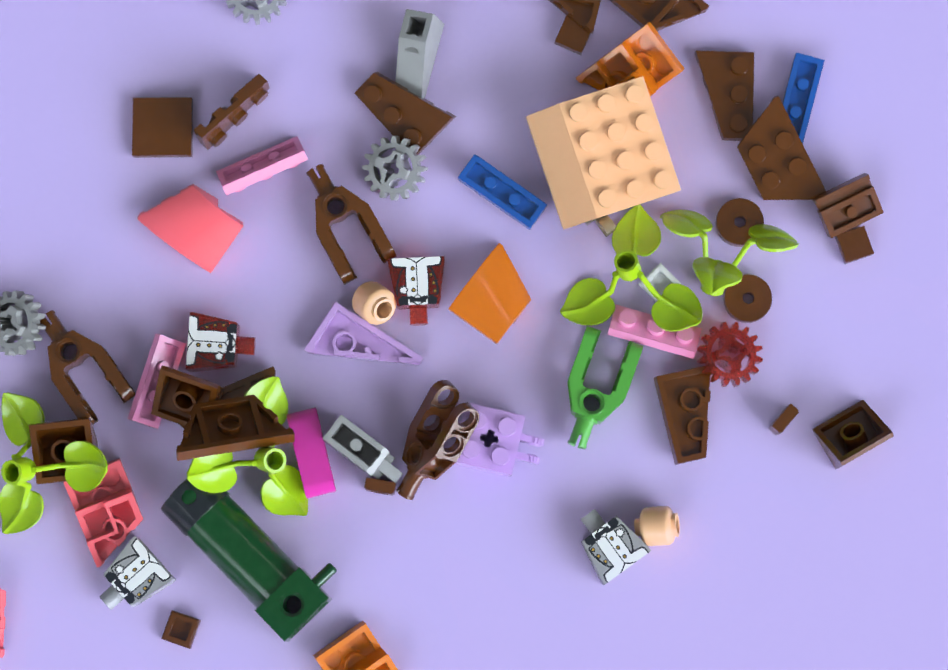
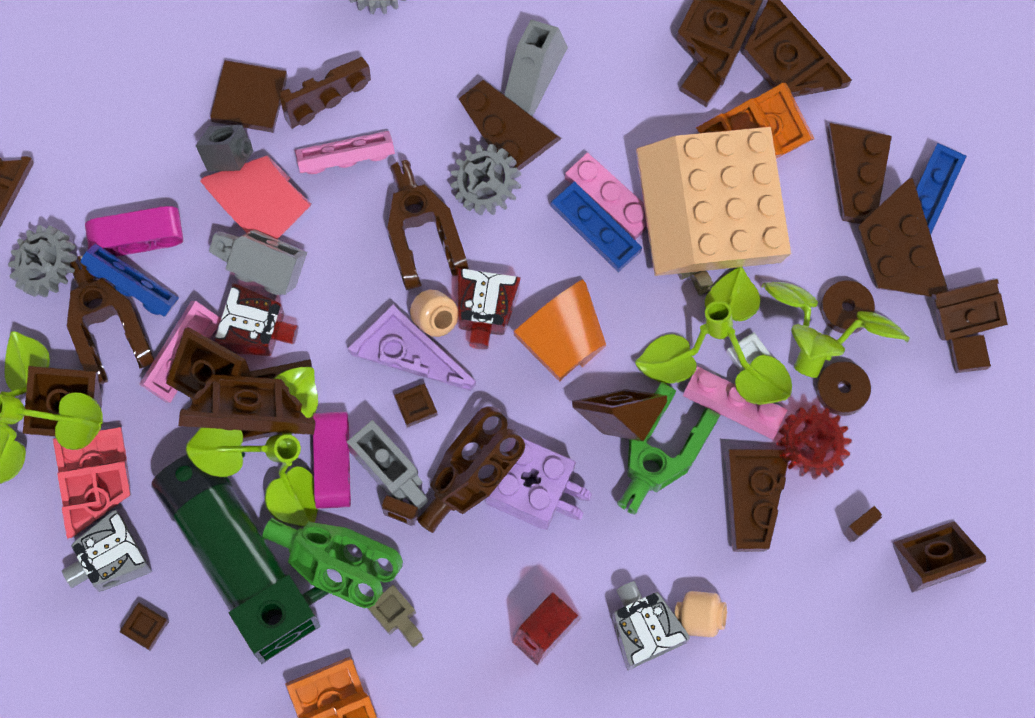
camera: 10 degrees right, 10 degrees down
(89, 279) = (136, 231): none -> dark pink beam
(97, 327) = (128, 280): none -> blue plate
(153, 185) = (224, 148): none -> dark grey brick
(208, 283) = (260, 259): none -> light grey hinge
(315, 531) = (325, 547): none -> bright green piece
(374, 387) = (415, 405): none -> reddish brown tile
(393, 576) = (394, 613): none -> dark tan plate
(508, 158) = (609, 194): none -> bright pink plate
(527, 564) = (545, 628): none -> clear red torso
(558, 361) = (622, 412): none -> reddish brown slope

